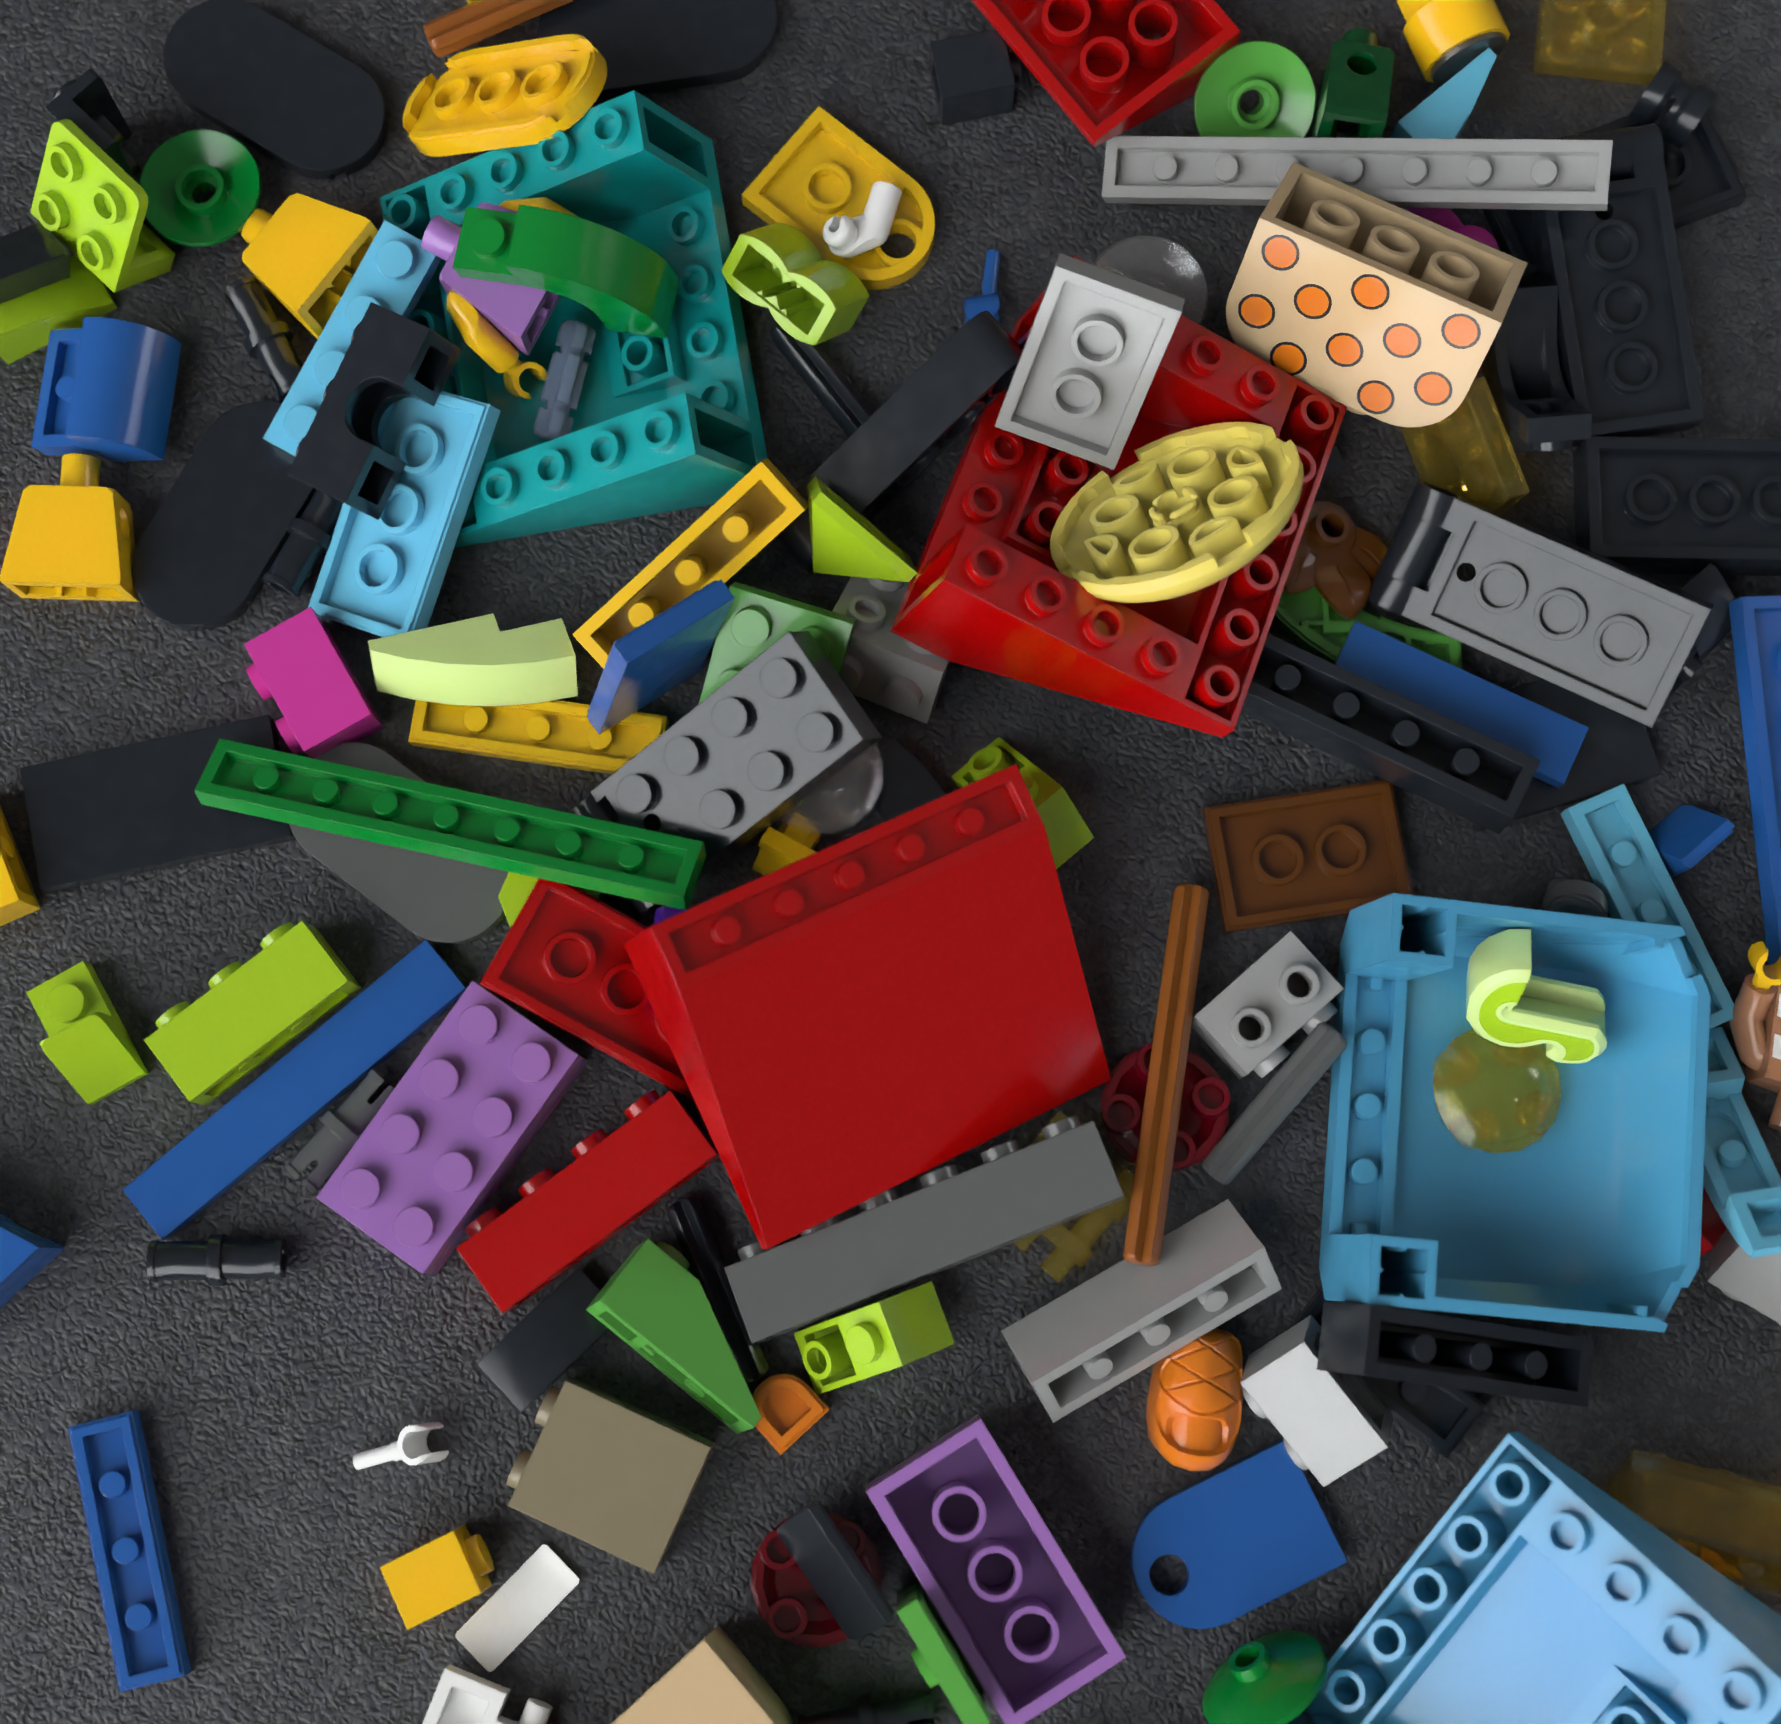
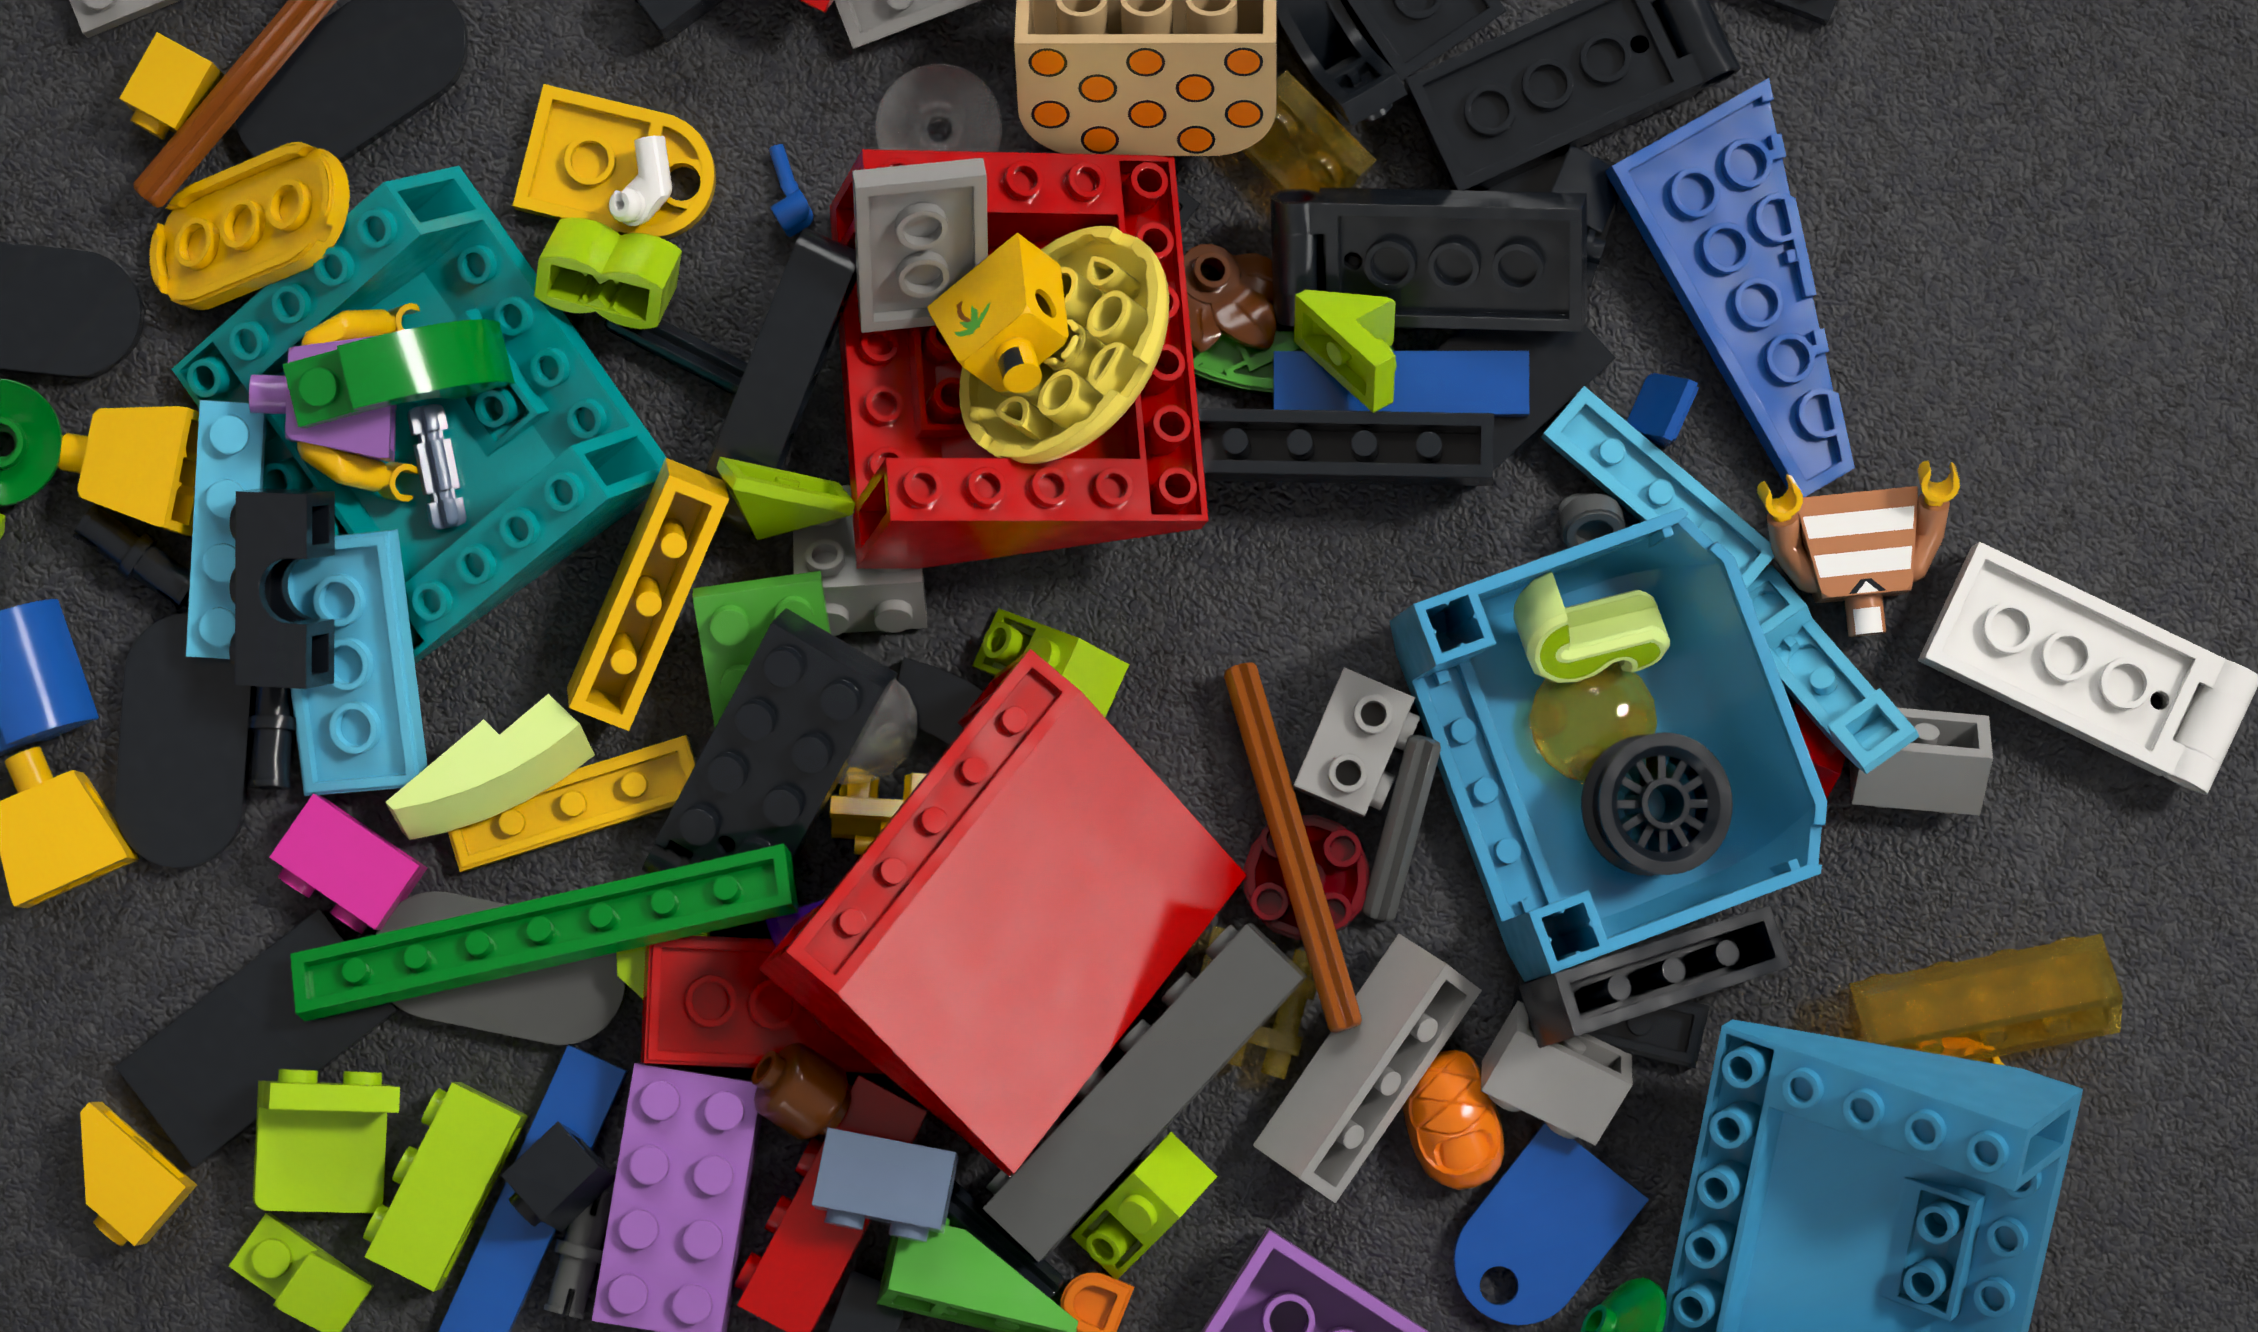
camera: 25 degrees left, 5 degrees up
(162, 920) = (322, 1142): none -> lime bracket
(351, 1052) = (557, 1178): none -> black brick
(610, 1078) = (801, 1091): none -> reddish brown head
(643, 1199) = (884, 1183): none -> sand blue piece
(659, 655) = (660, 693): blue tile -> none
(1135, 460) = (1005, 316): none -> yellow torso
(1305, 855) = (1330, 585): reddish brown tile -> none
(1433, 638) = (1350, 341): none -> lime slope
(1526, 1234) = (1711, 801): none -> black wheel

